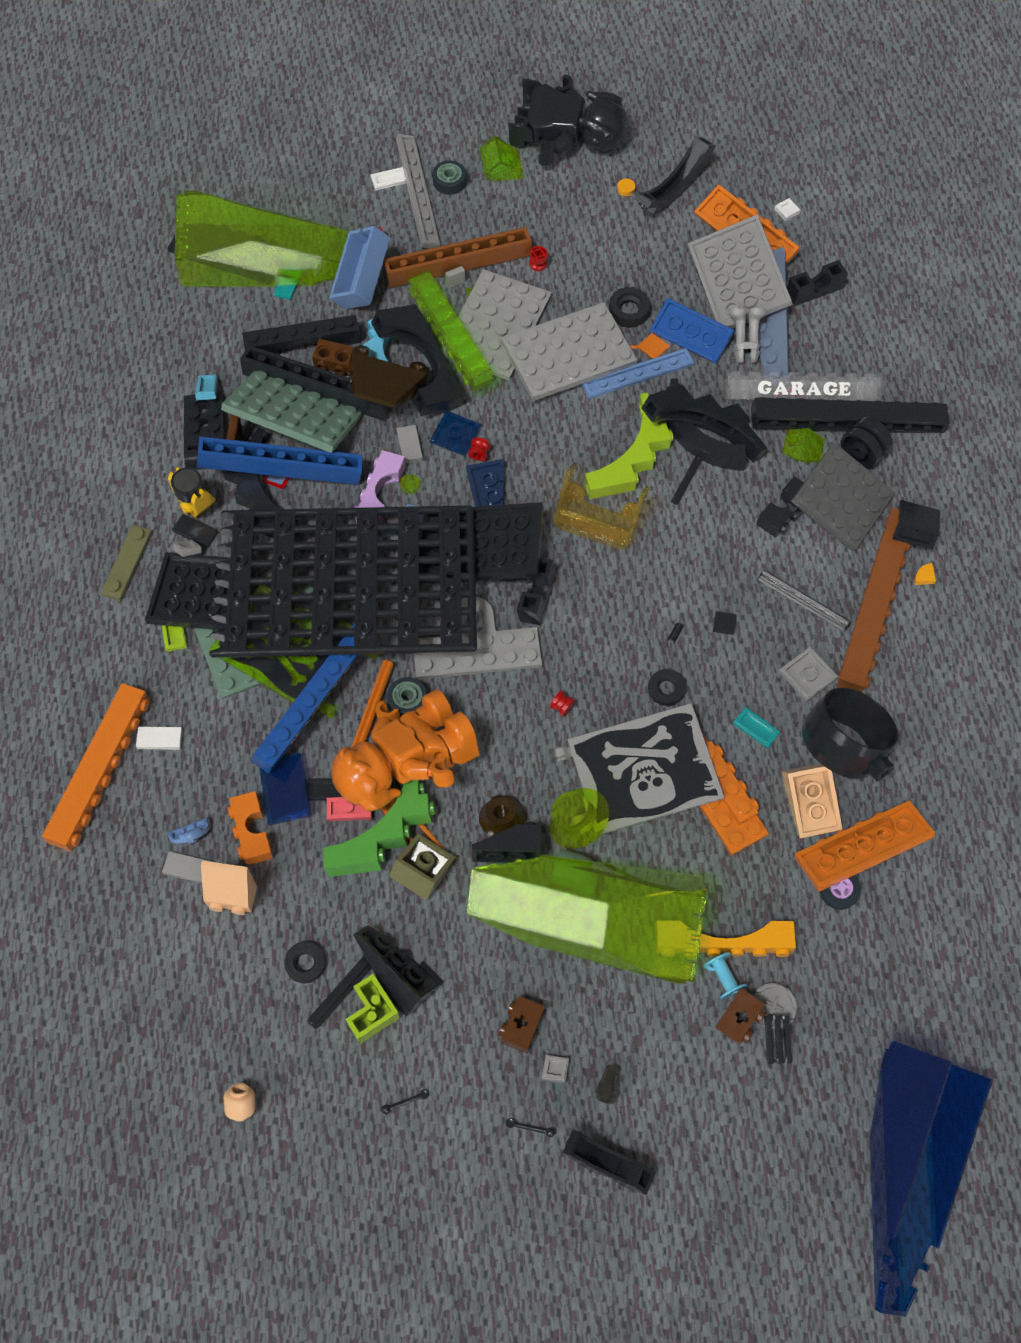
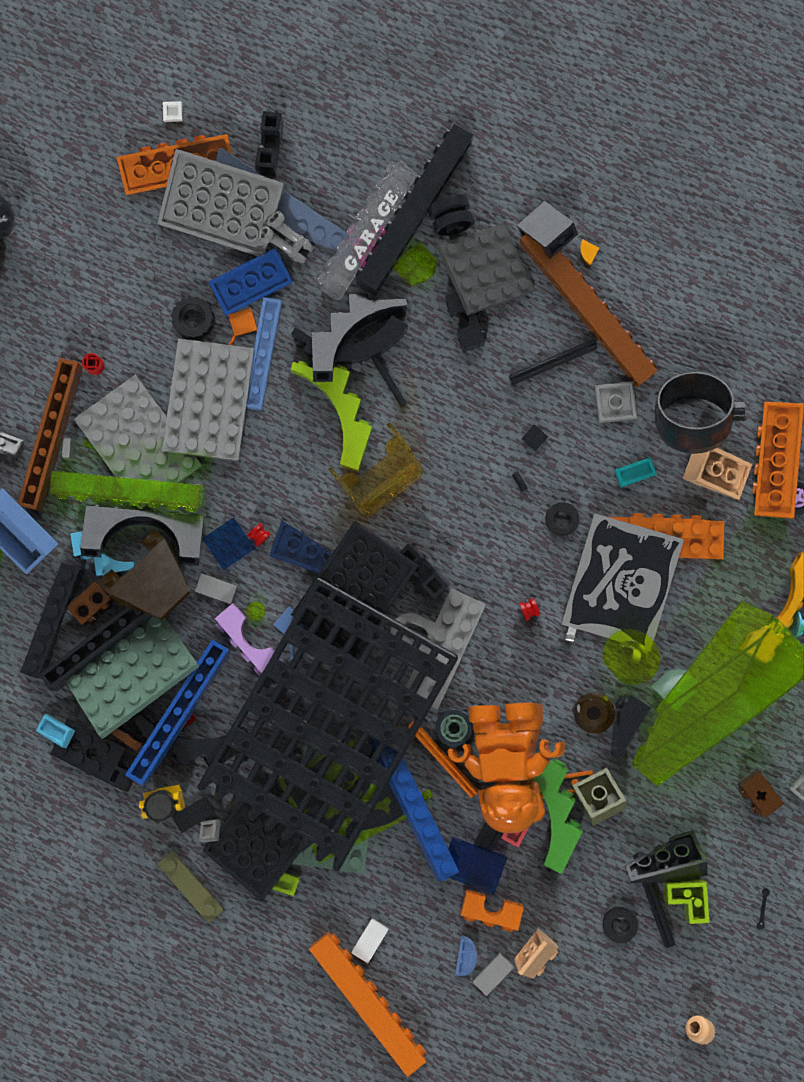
camera: 55 degrees left, 20 degrees up
(626, 187) = (60, 235): light orange tile -> none
(680, 179) = (85, 188): black arch -> none

